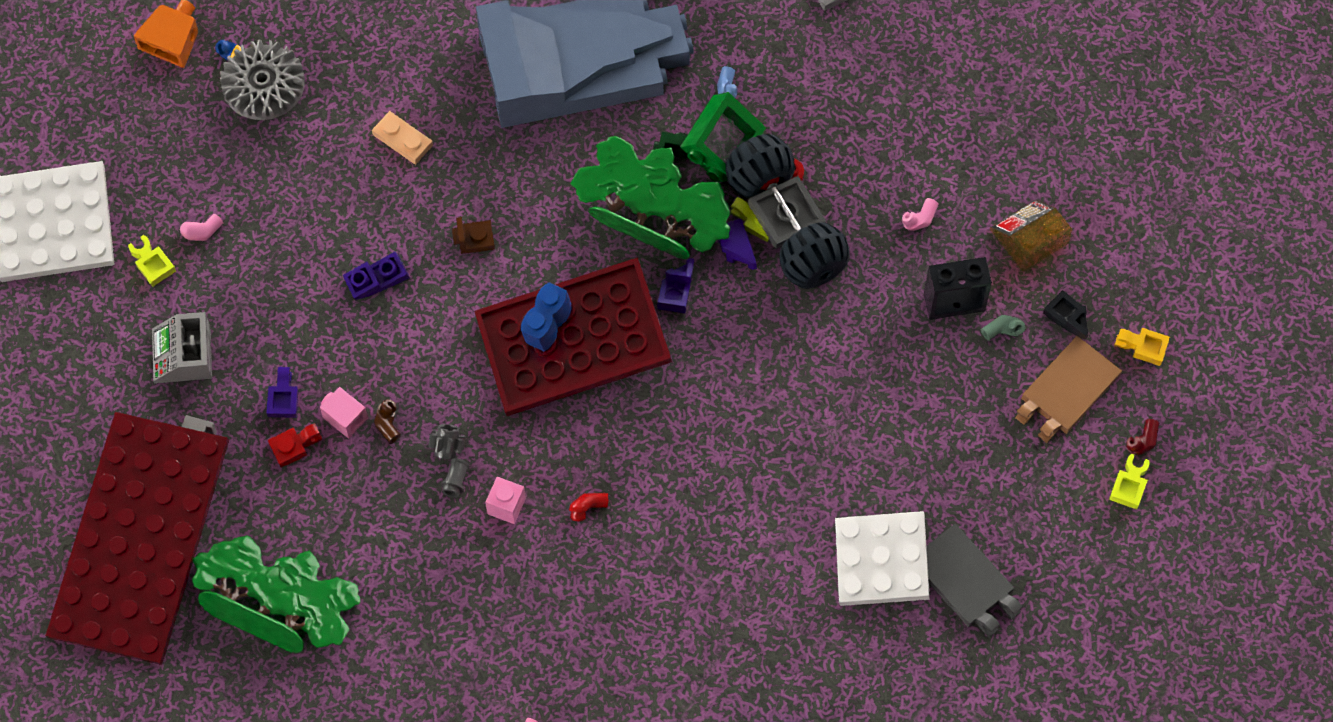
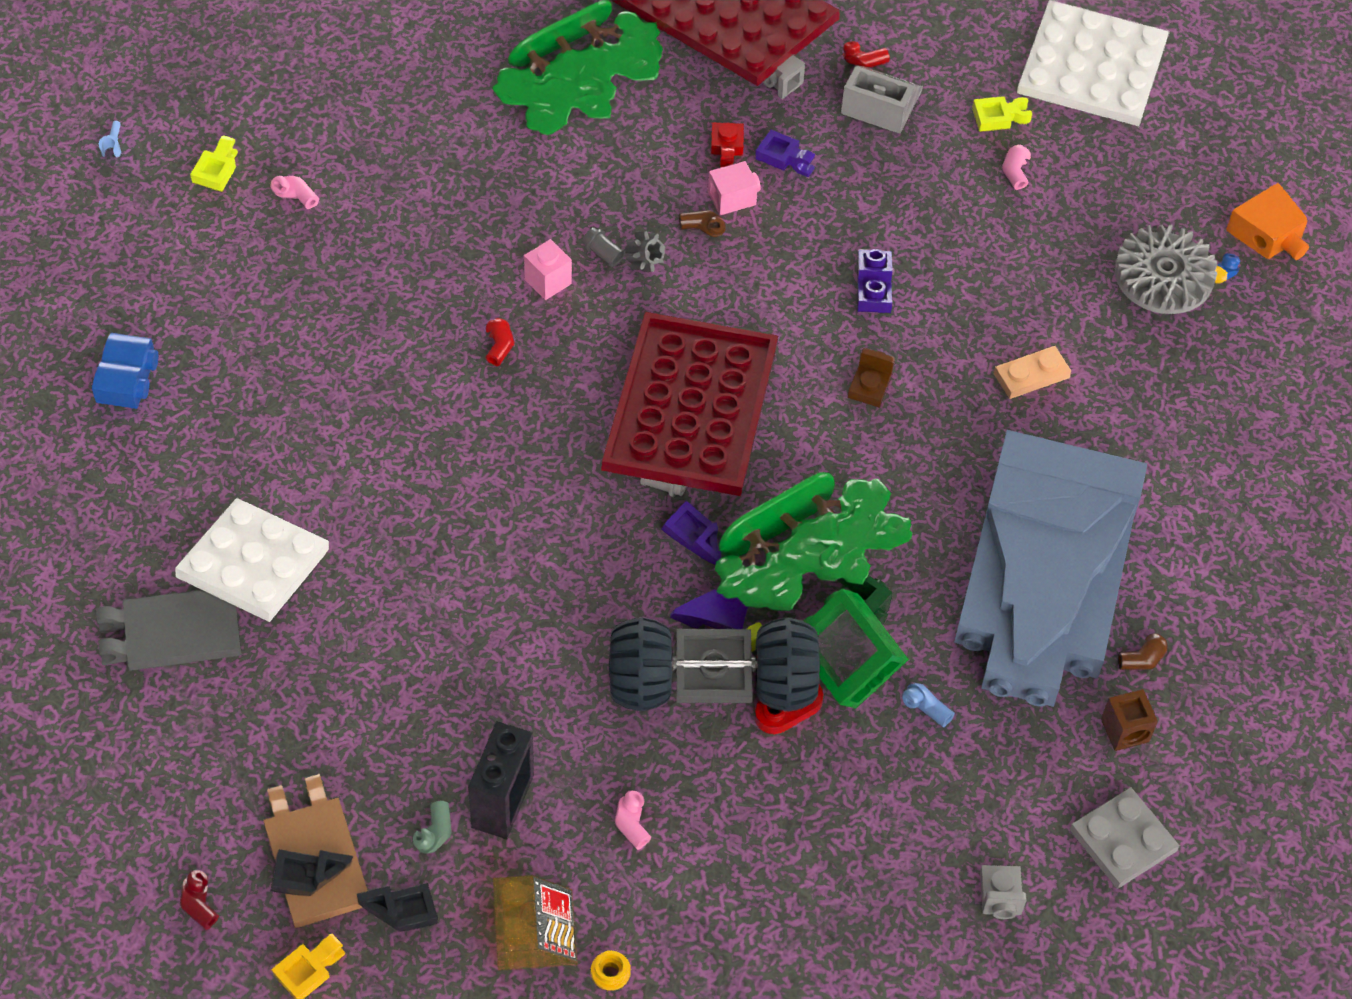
camera: 115 degrees right, 10 degrees down
(141, 385) = (866, 59): none -> red arm
(542, 321) = (720, 370): blue brick -> none
(1032, 170) = (606, 960): none -> yellow plate
(1087, 378) = (306, 873): none -> black slope
(1130, 486) = (154, 846): neon yellow plate -> none

